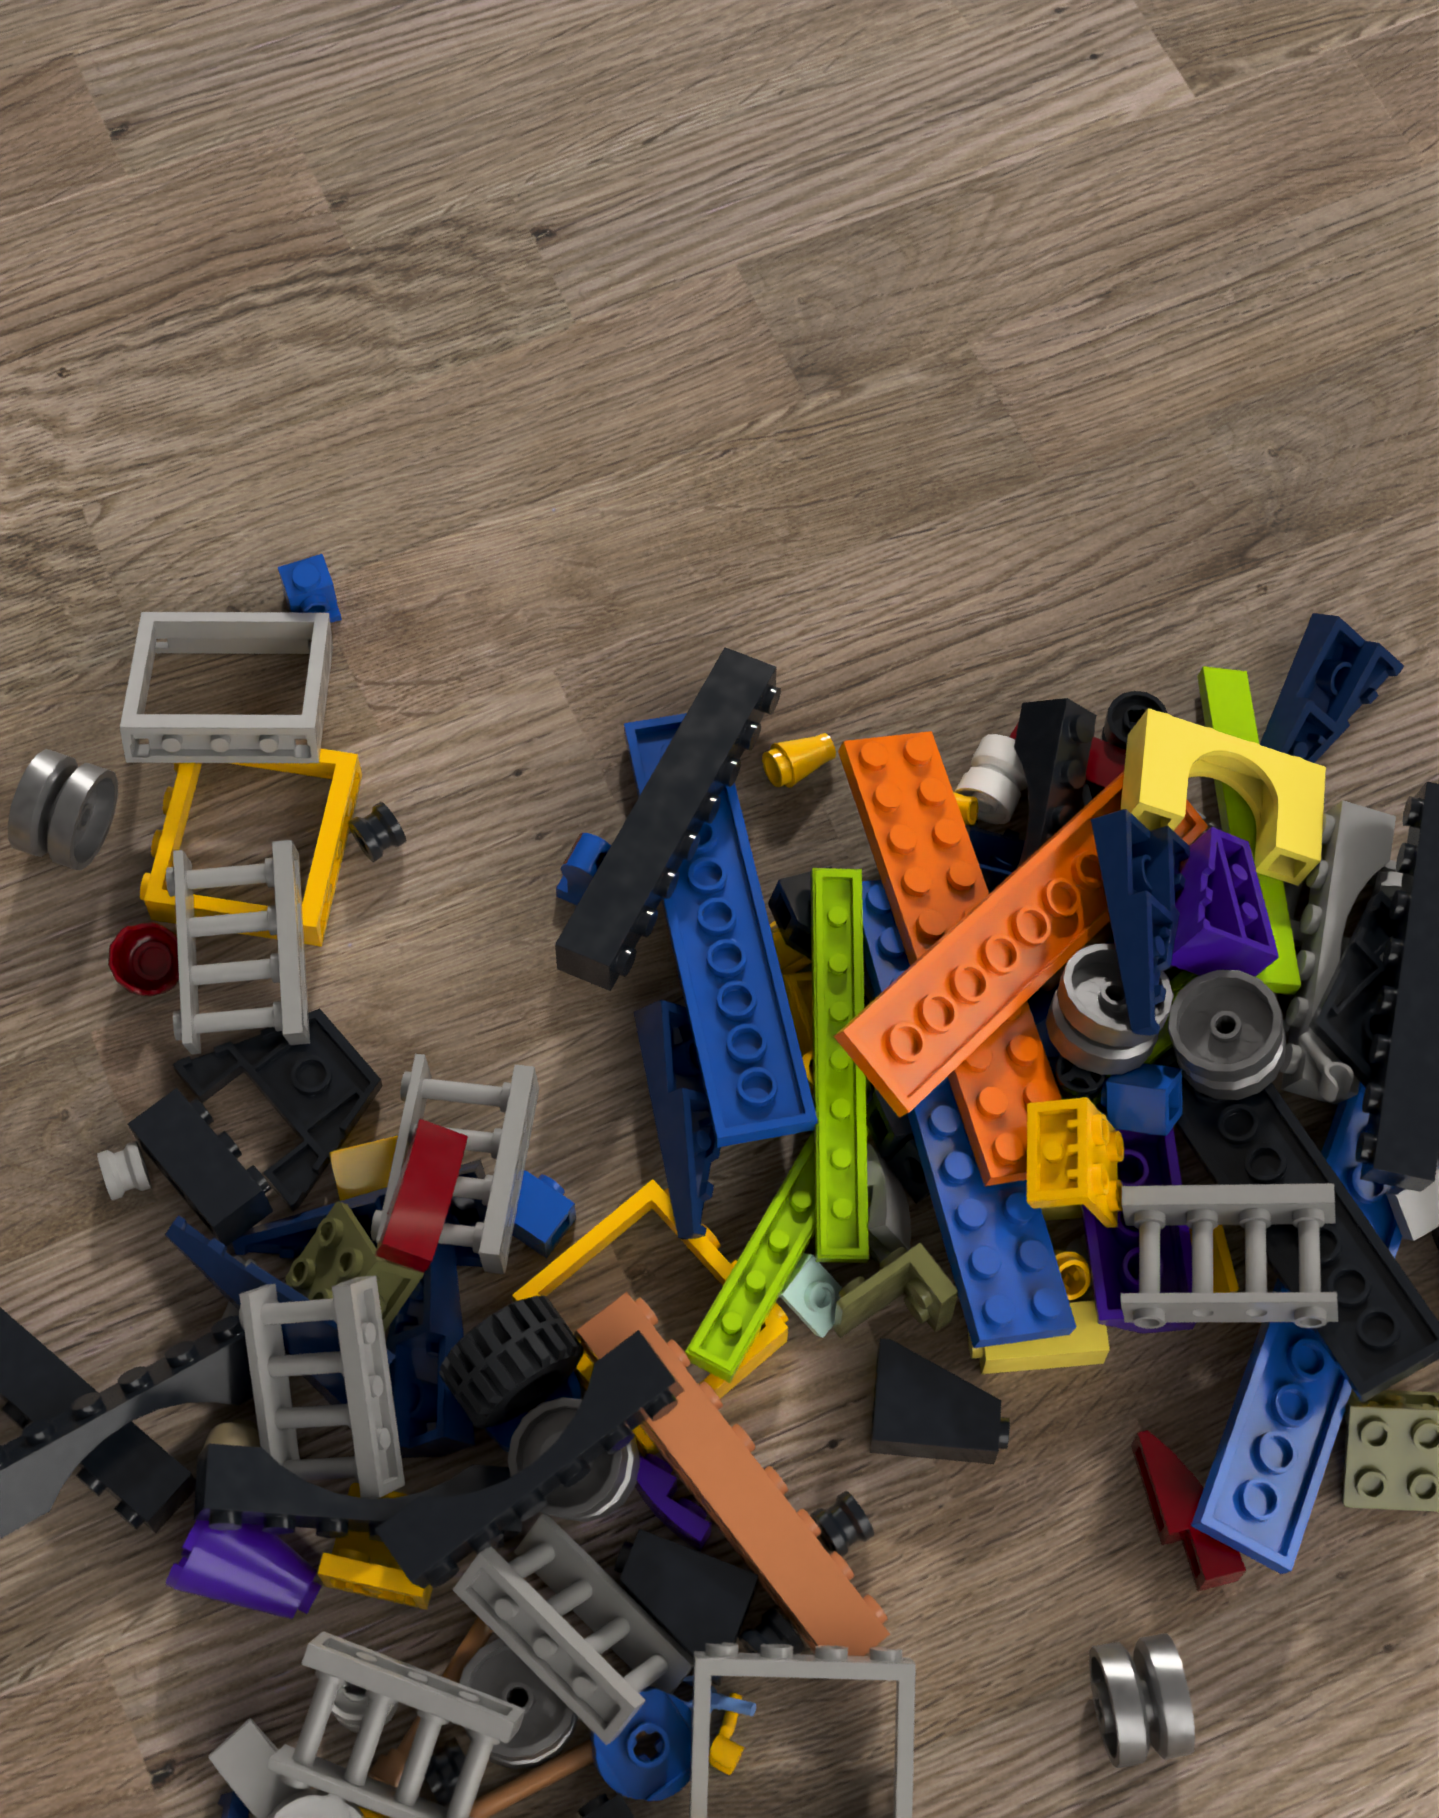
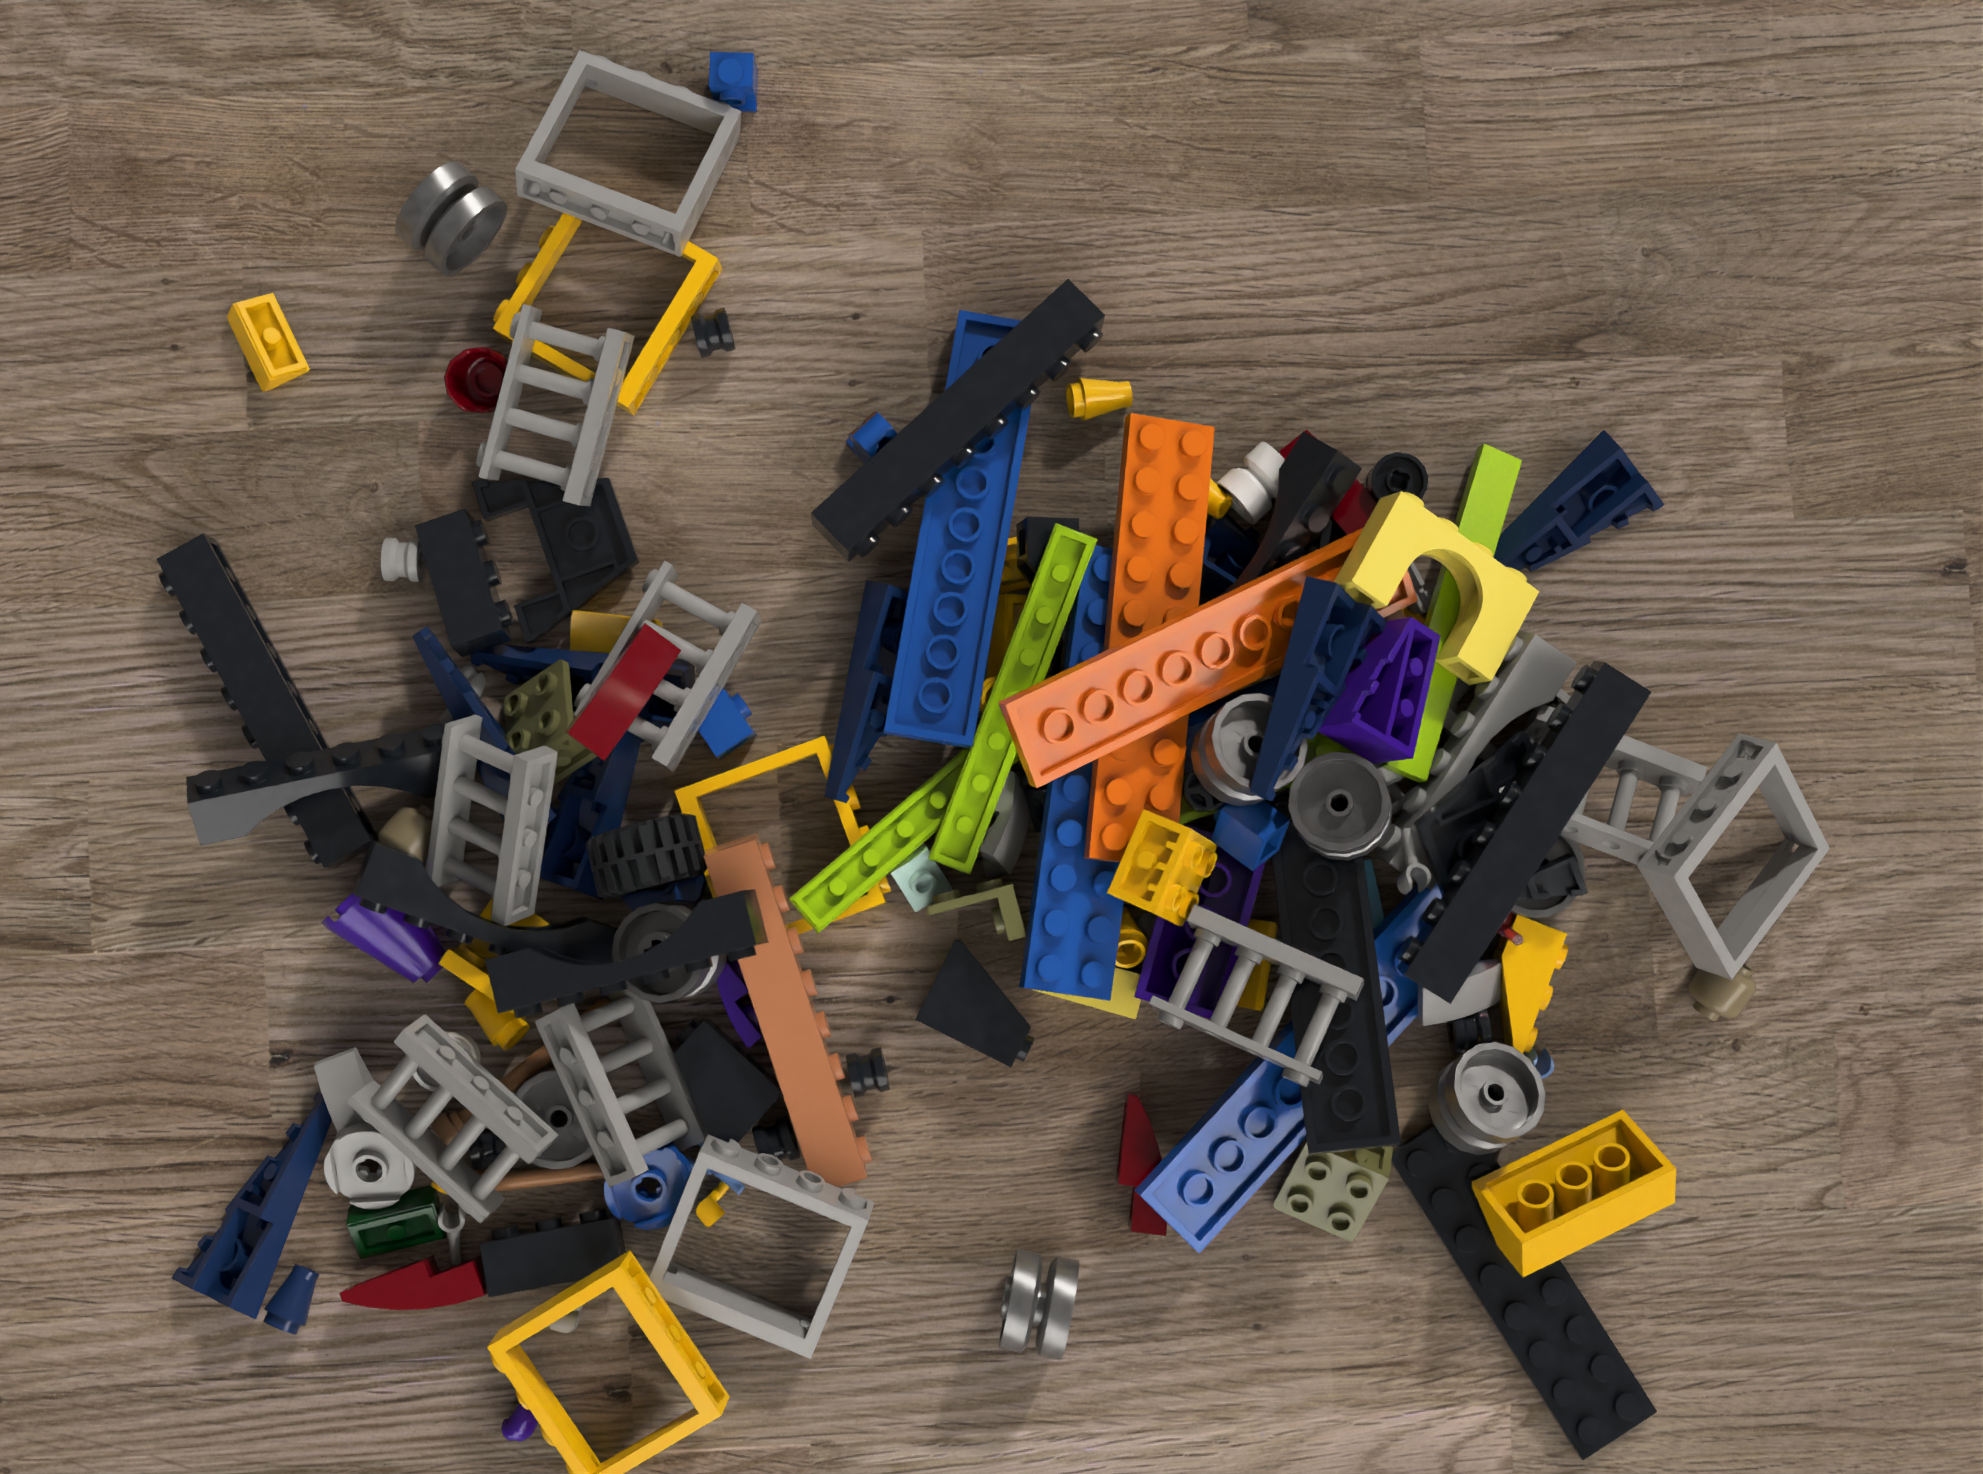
camera: 20 degrees right, 20 degrees up
(403, 1625) = (500, 1028): none -> yellow cone

